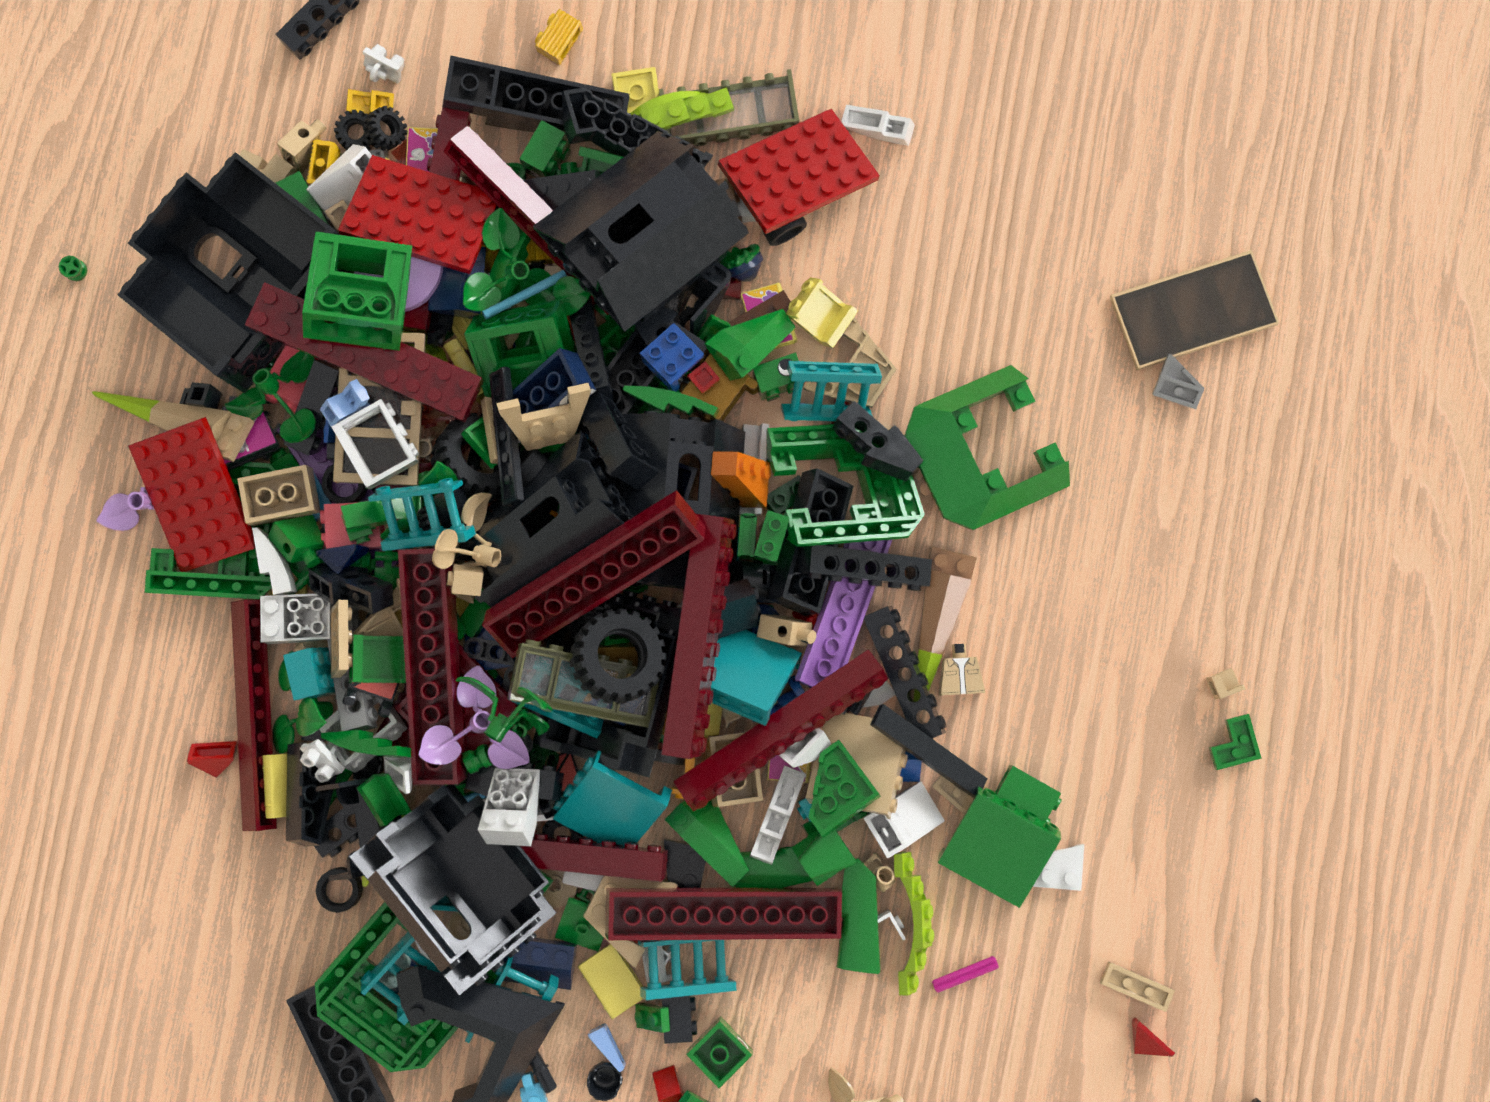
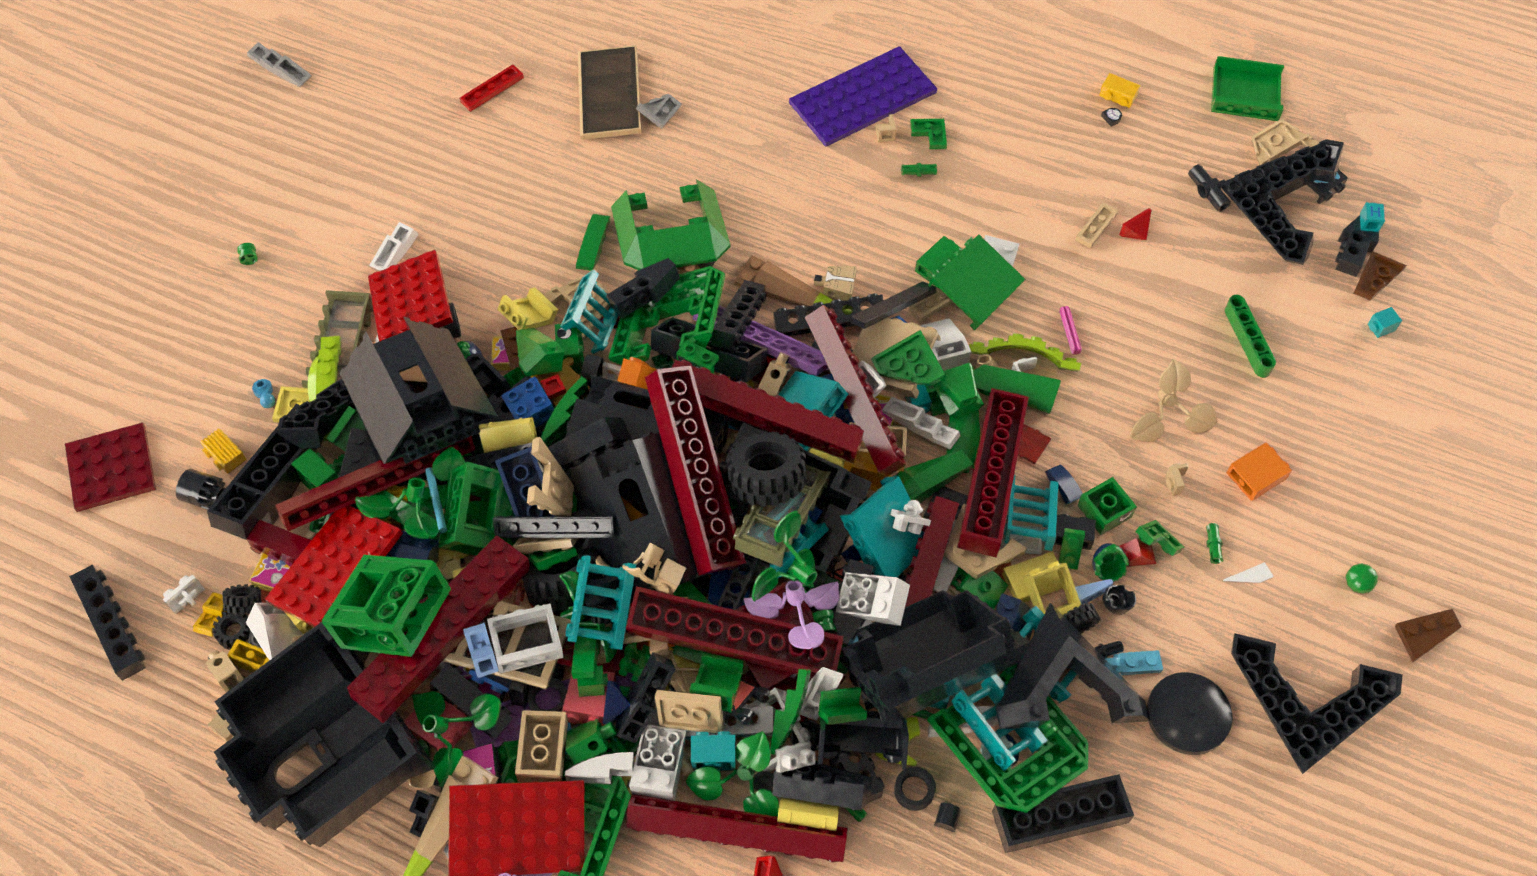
camera: 85 degrees left, 25 degrees down
(316, 929) = (947, 816): none -> black brick
(502, 33) = (199, 488): none -> black gear
(566, 1040) = (1083, 617): none -> black tyre
(580, 1023) = (1066, 581): none -> light yellow window
(621, 353) = (507, 434): none -> light yellow piece
(624, 828) = (911, 515): none -> white hips
(635, 58) = (263, 390): none -> dark azure plate
(646, 1064) = (1110, 562): none -> green hair
(738, 1002) = (1066, 484): none -> dark blue slope
(753, 413) = (592, 366): none -> black tyre
(791, 952) = (1032, 444): none -> clear red piece
(945, 359) = (592, 242): none -> green slope
(1159, 158) = (491, 87): none -> red plate
(1168, 740) = (919, 169): none -> green pin
(1278, 642) = (862, 96): none -> dark purple plate
(1331, 983) = (1112, 116): none -> tile
(1376, 988) = (1119, 90): none -> yellow brick

